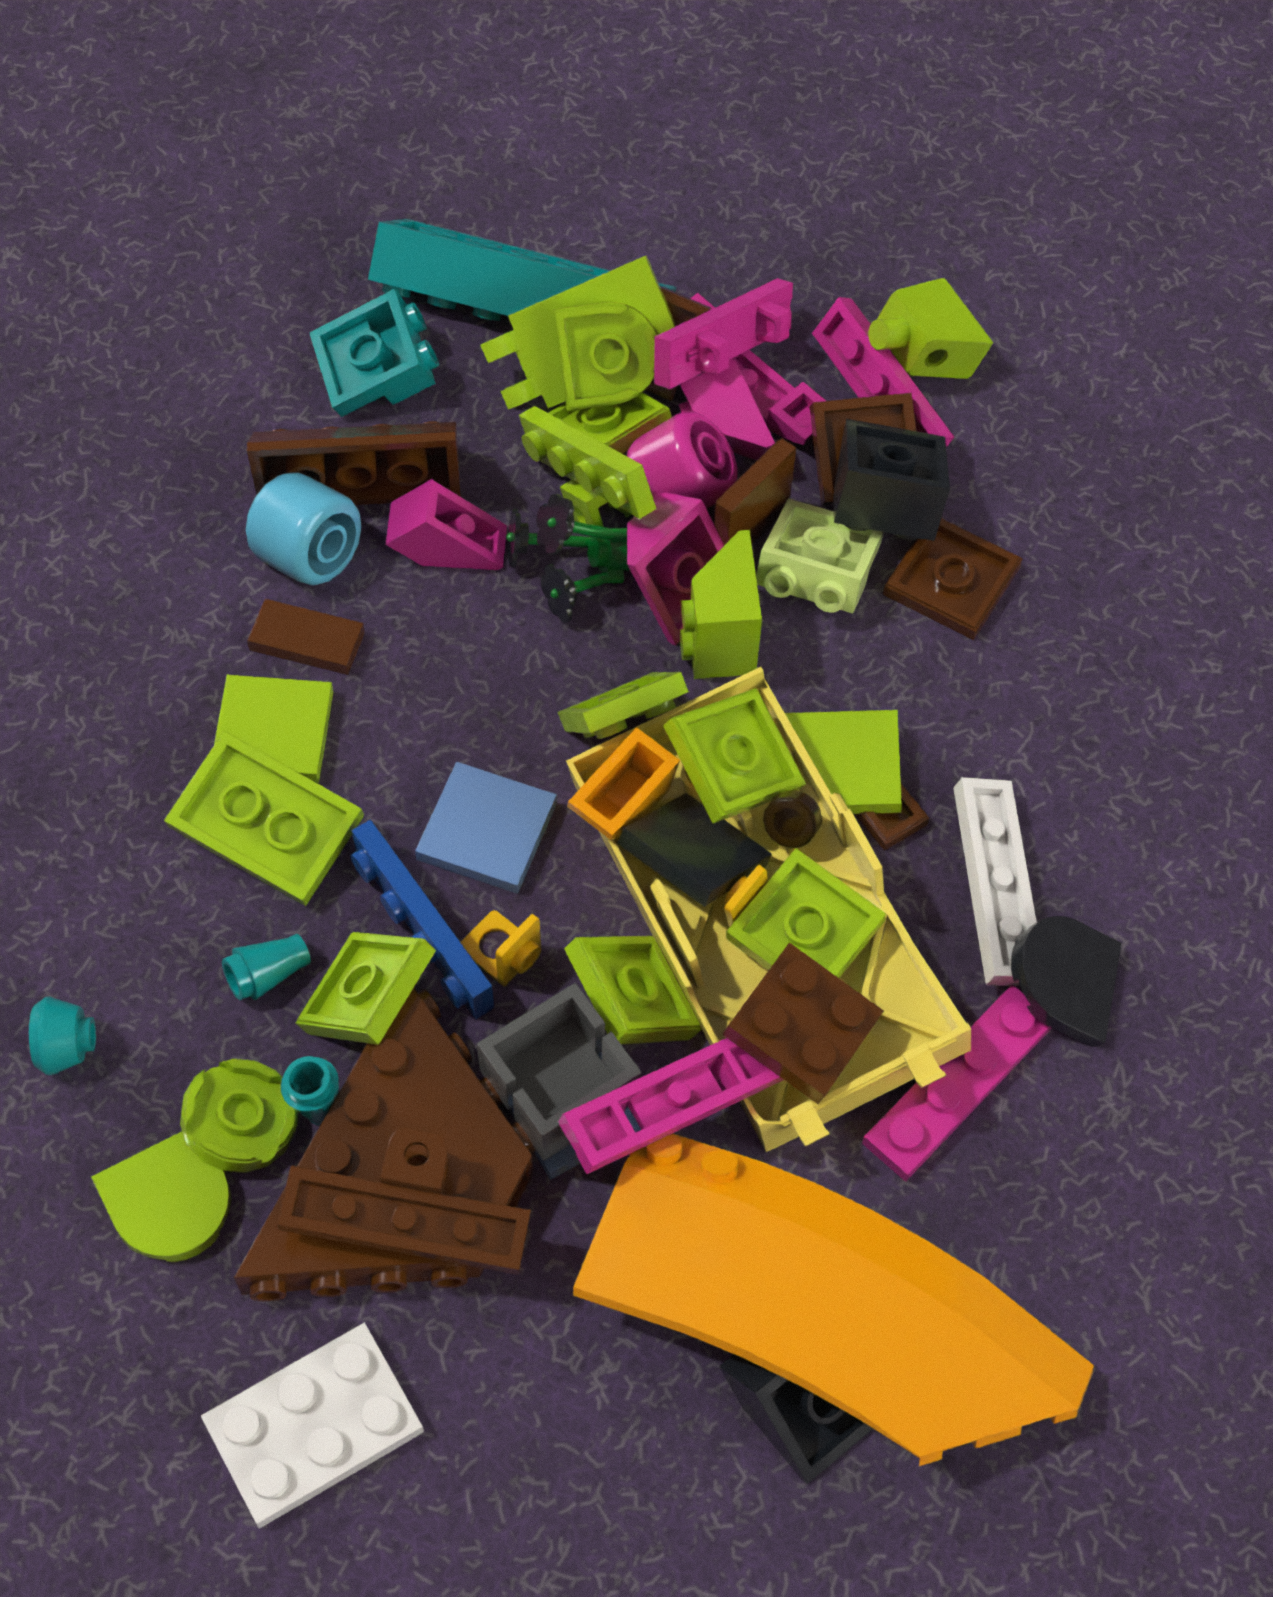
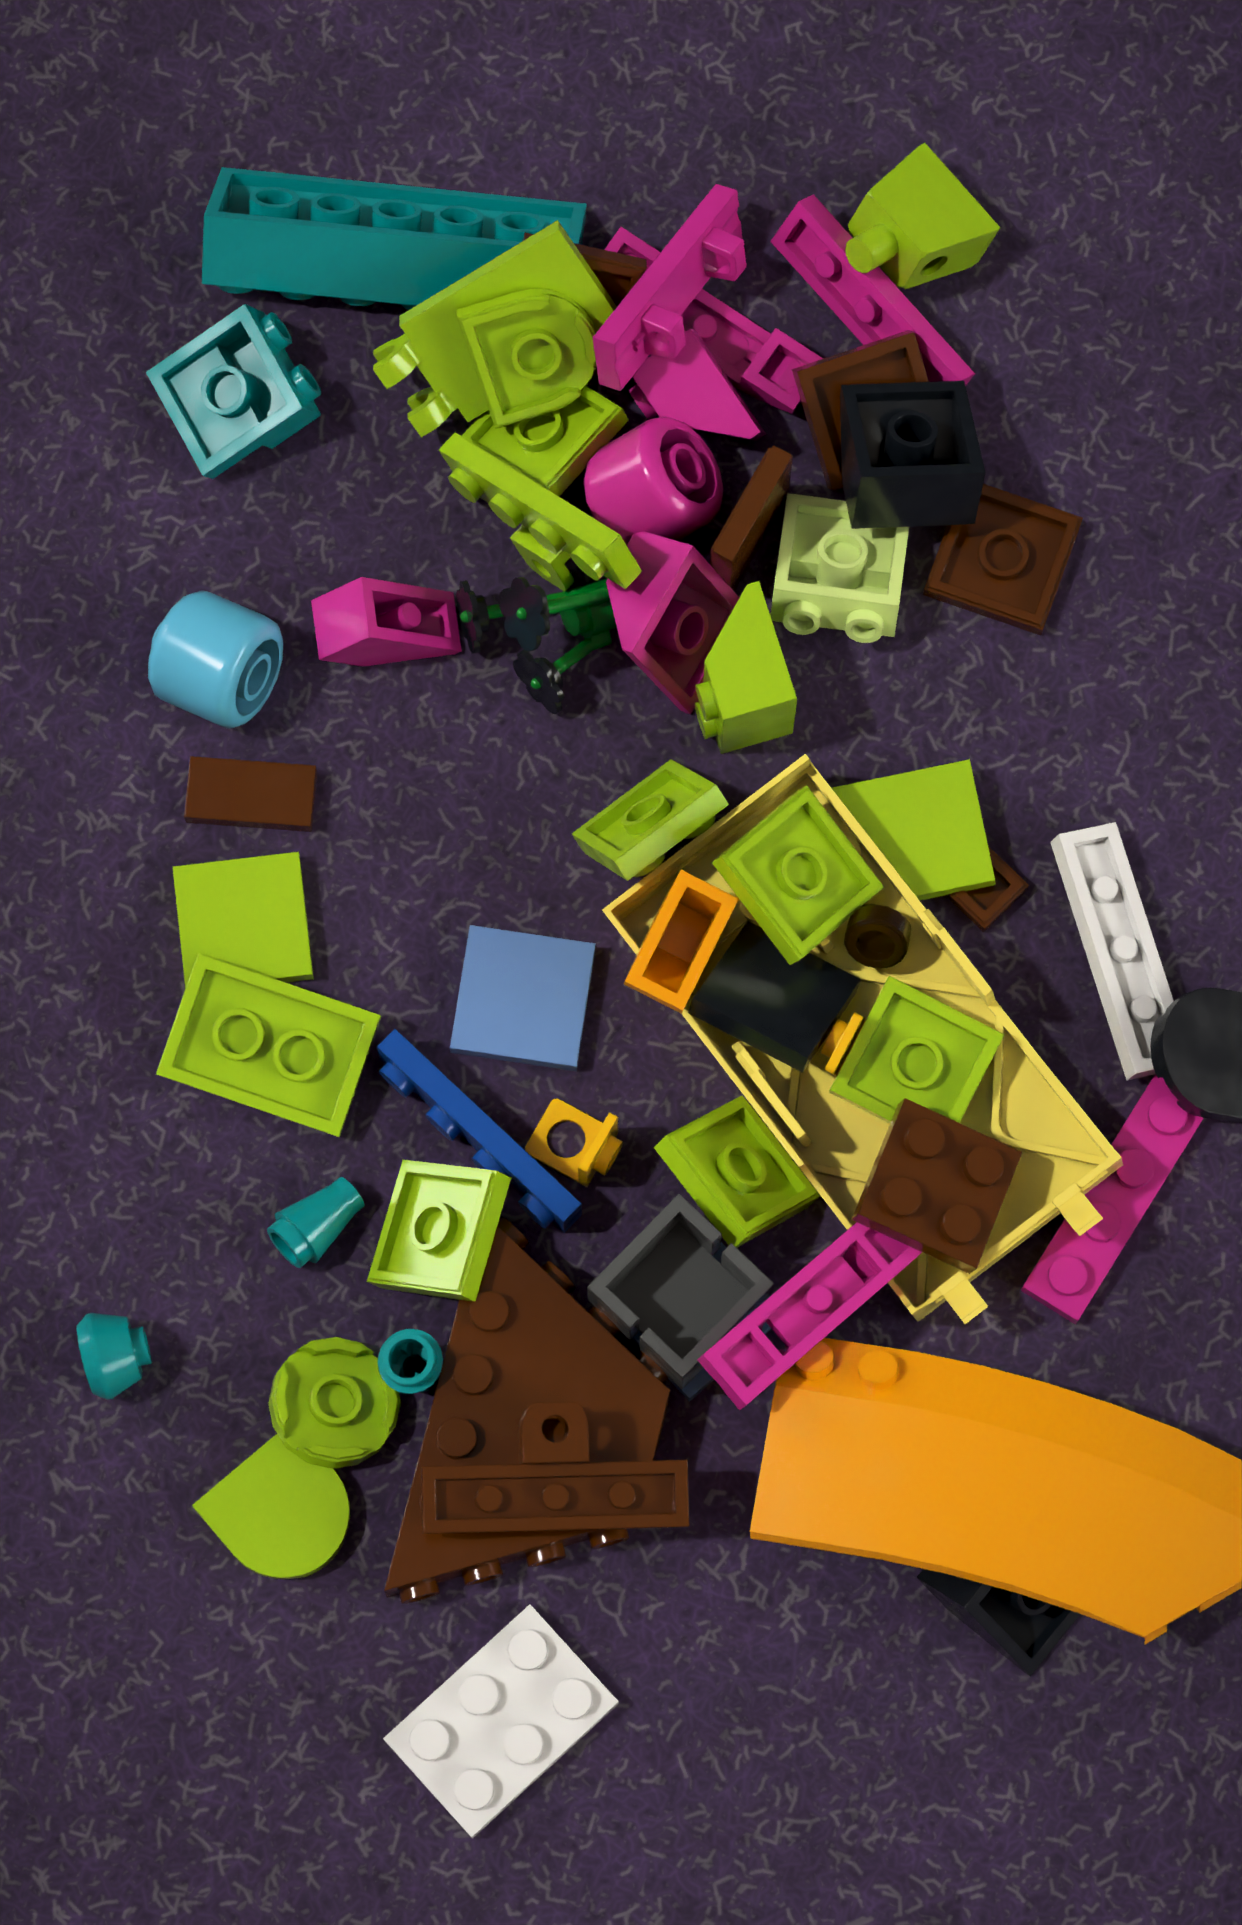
camera: 10 degrees left, 15 degrees up
(361, 462) = (259, 549): reddish brown slope -> none

